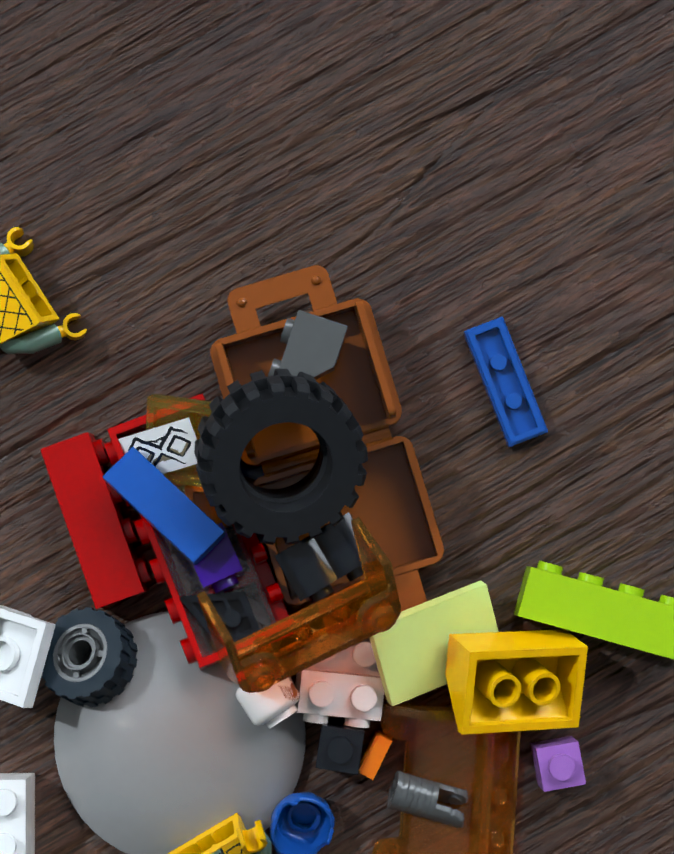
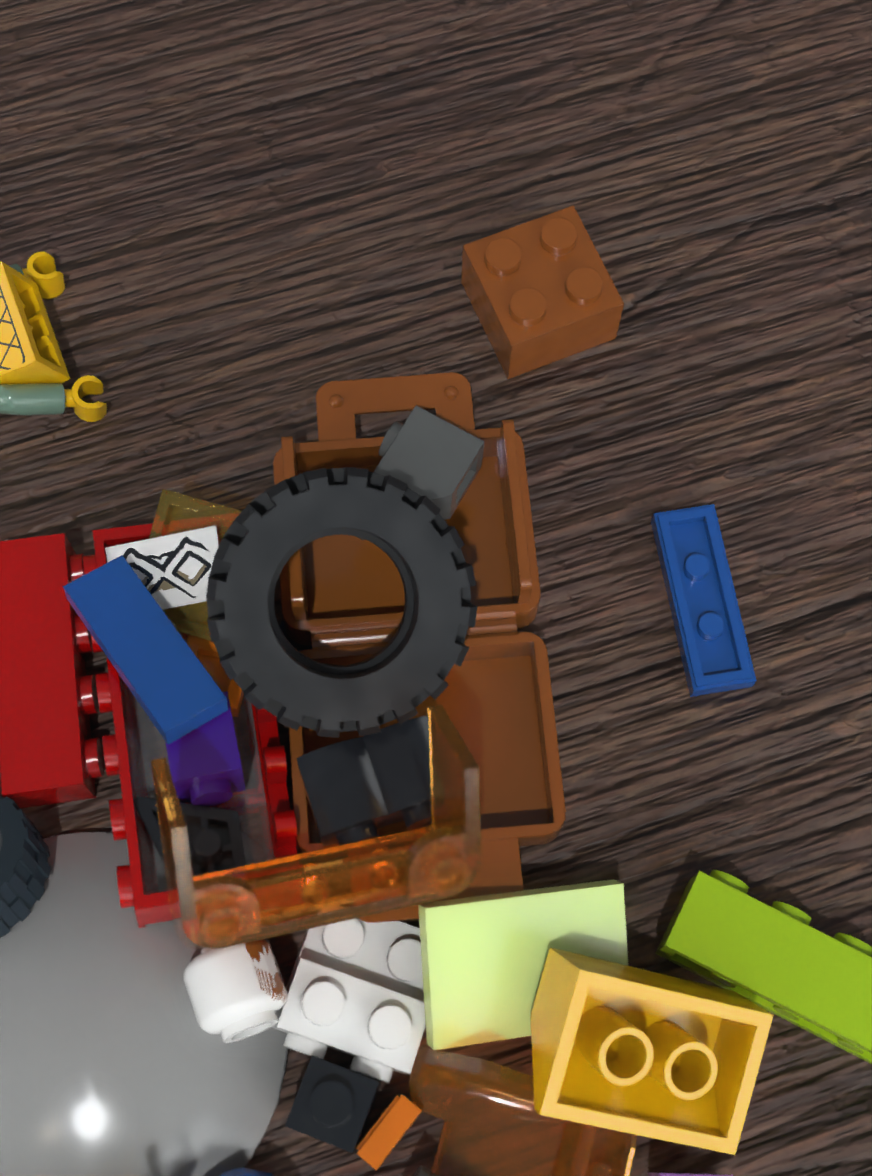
camera: 10 degrees right, 15 degrees down
(360, 188) = (541, 291): none -> dark orange brick

